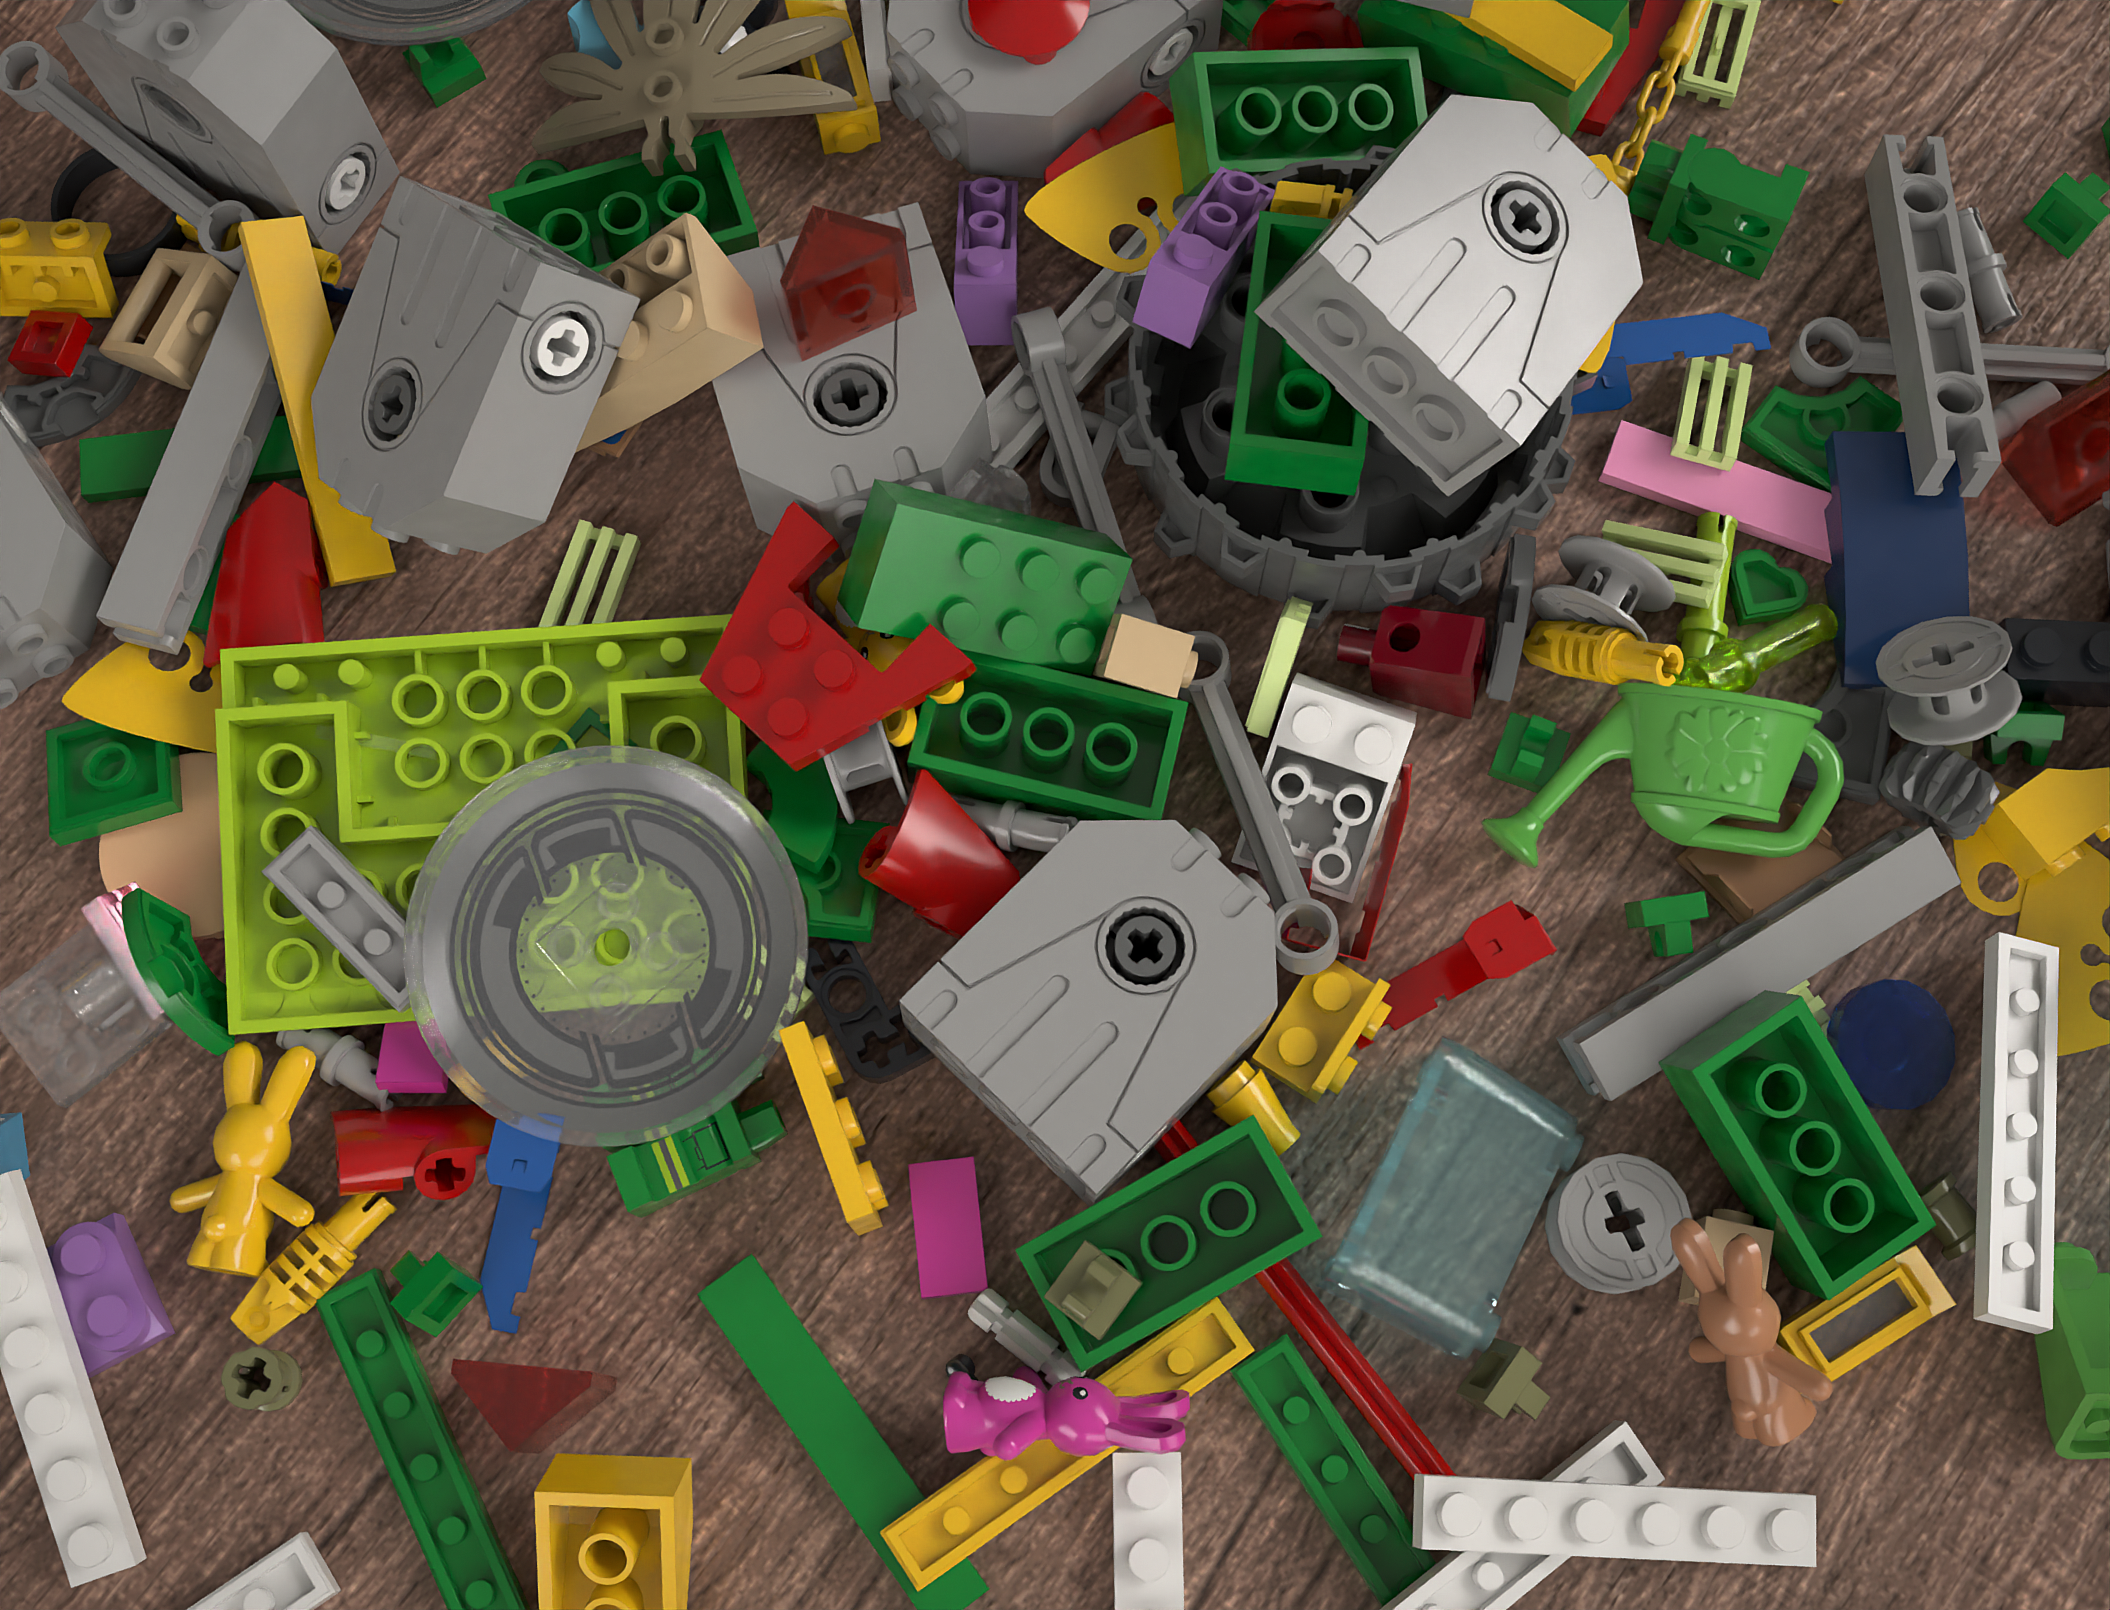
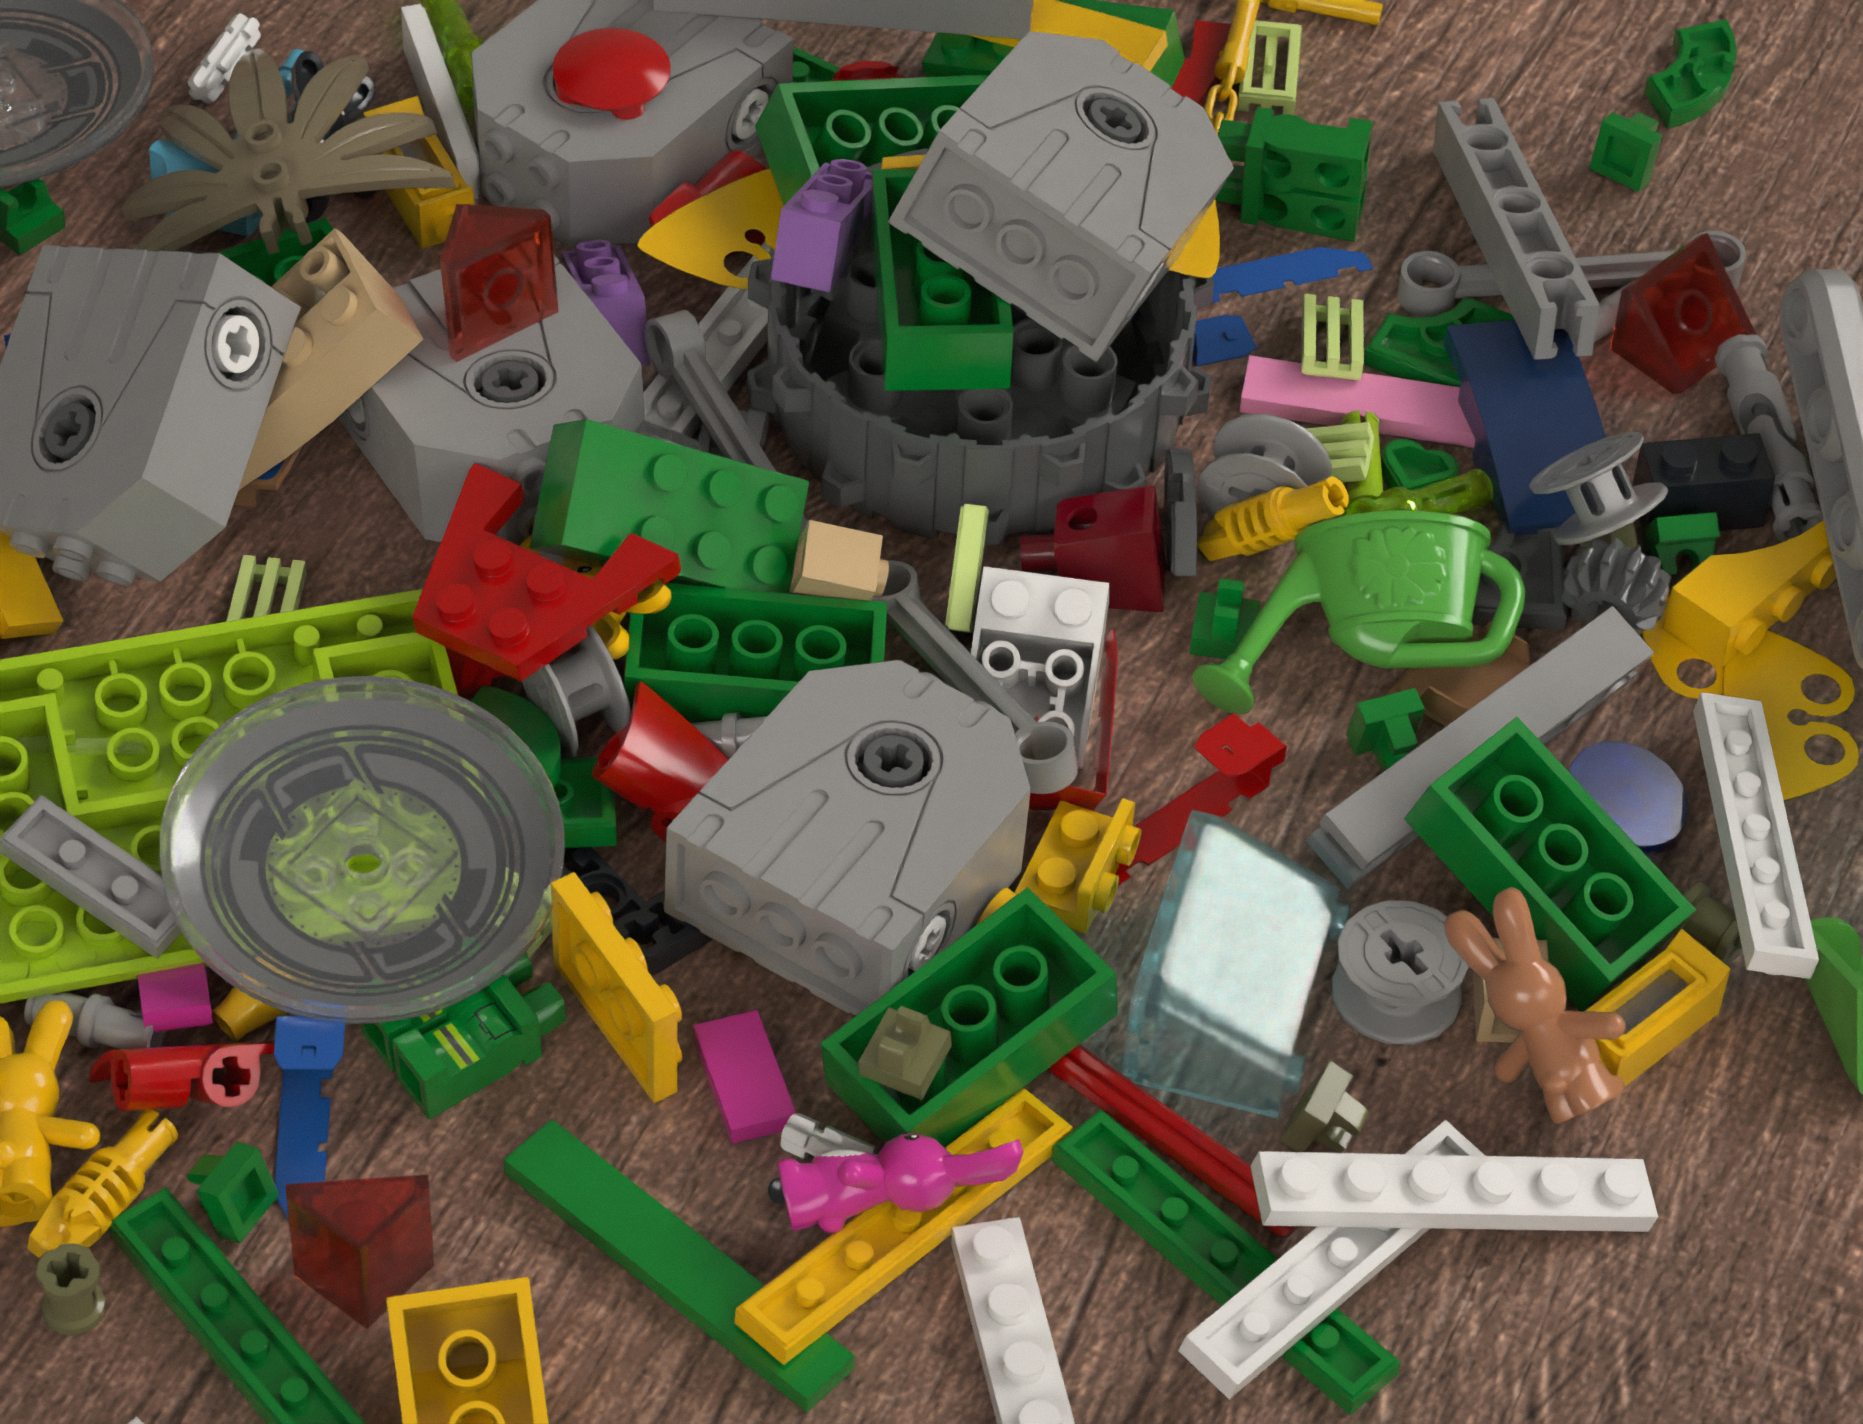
camera: 15 degrees left, 25 degrees down
(1986, 276) = (1564, 201): light grey pin -> none

